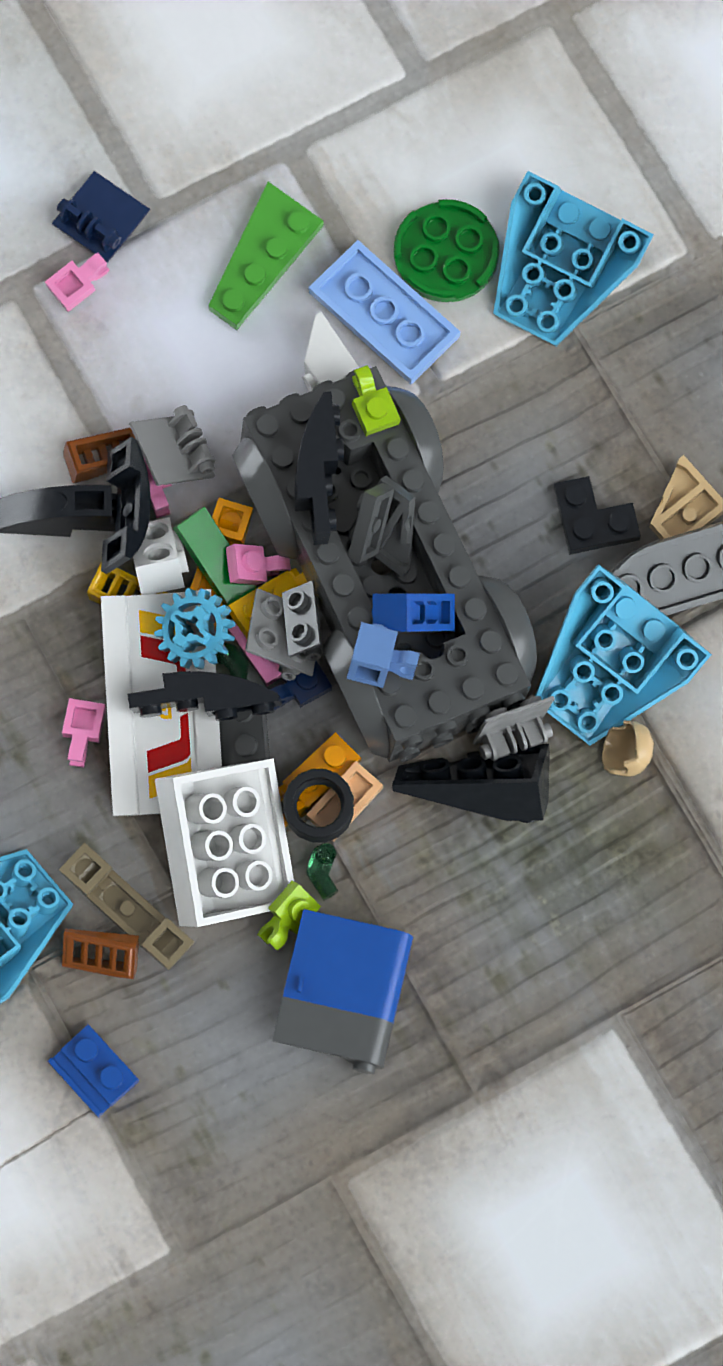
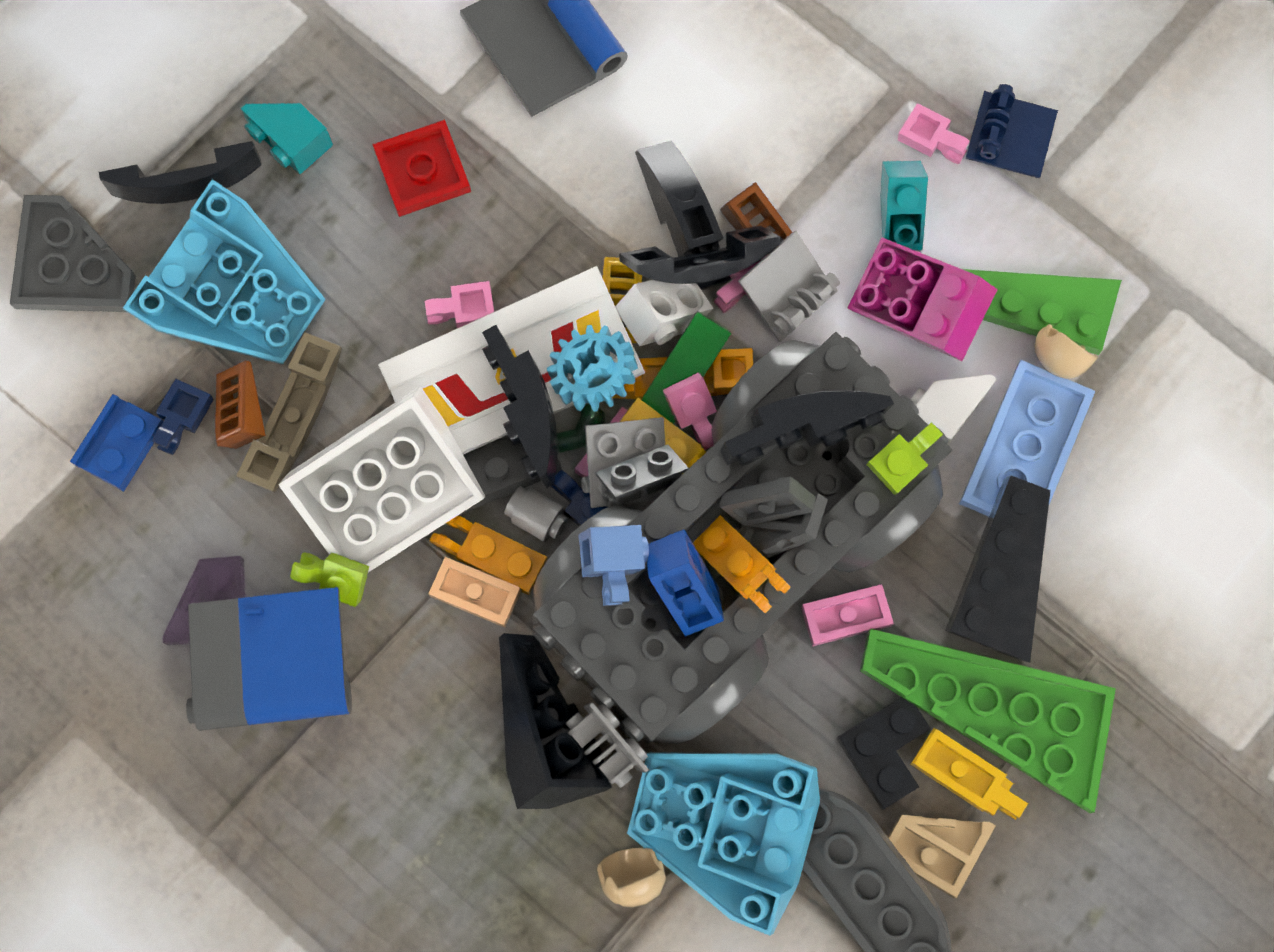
camera: 70 degrees right, 0 degrees up
(87, 1002) = (180, 409): none -> dark blue plate
(132, 328) = (904, 202): none -> teal slope
(225, 345) = (923, 298): none -> dark pink slope
(255, 1023) = (211, 581): none -> clear purple wing
(295, 727) = (536, 513): none -> light grey brick
(308, 779) = (442, 534): black tyre -> none
(319, 253) = (1061, 354): none -> tan hair
(319, 869) = (394, 591): clear green arm -> none
(410, 565) = (738, 562): none -> light orange hinge
(446, 250) = (1125, 489): green tile -> none
(474, 506) = (847, 615): none -> bright pink plate
(486, 369) = (1004, 577): none -> black wedge
(561, 259) = (1167, 613): medium azure wedge -> none
(601, 403) = (1024, 715): none -> bright green wing
(635, 462) = (967, 775): none -> yellow hinge

